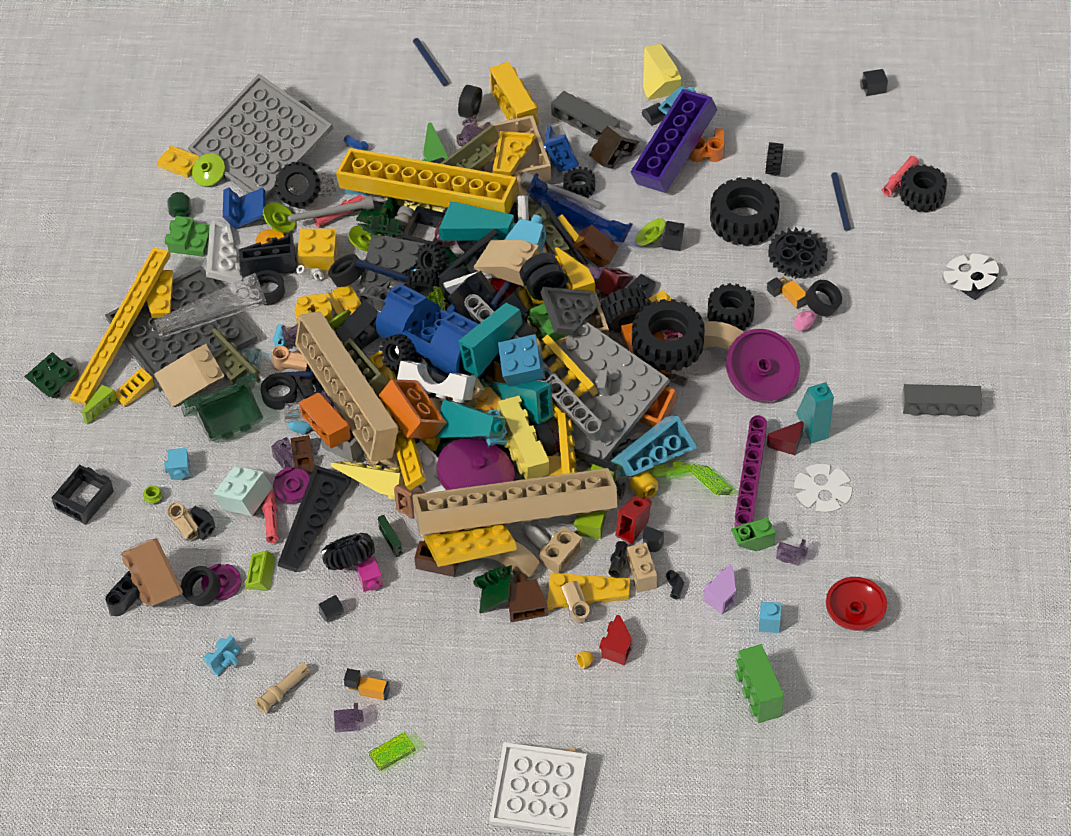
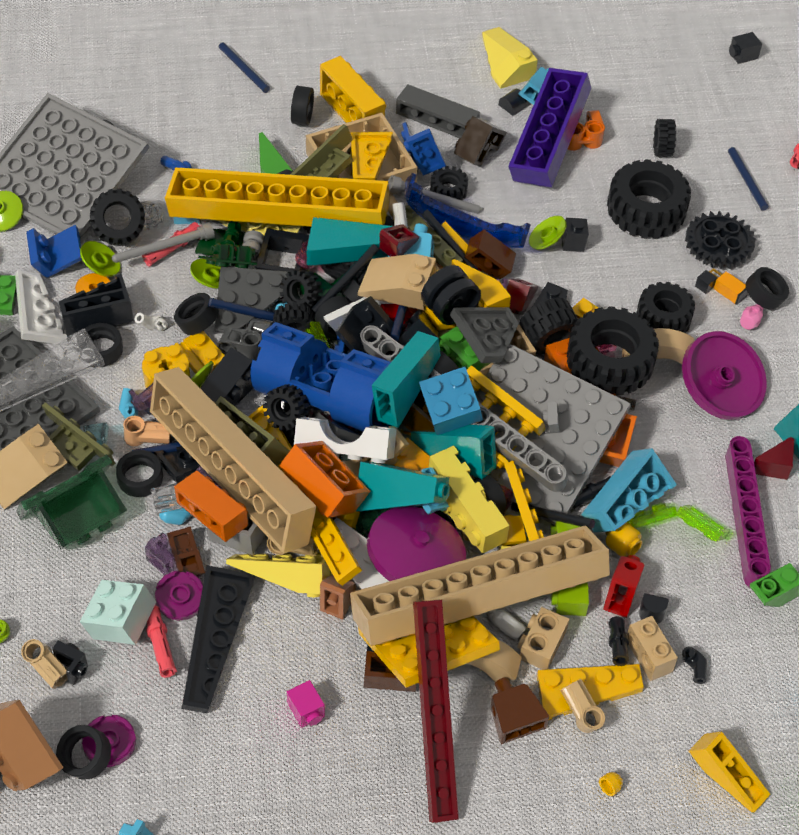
camera: 15 degrees left, 0 degrees up
(177, 463) = (24, 585): medium azure brick -> none
(260, 571) = (159, 718): lime slope -> none
(317, 248) = (155, 290): yellow brick -> none
(330, 608) = (264, 759): black brick -> none
(348, 551) = (274, 677): black gear -> none
(390, 536) = (321, 647): dark green tile -> none
(457, 585) = (435, 711): none -> dark red plate
(470, 130) = (315, 135): animal -> none
(494, 586) = (475, 702): dark green hinge -> none
(513, 226) = (397, 240): none -> dark red slope
(617, 643) = (649, 754): red slope -> none
(676, 661) = (729, 770): none -> yellow slope
(722, 591) = (759, 665): lavender slope -> none

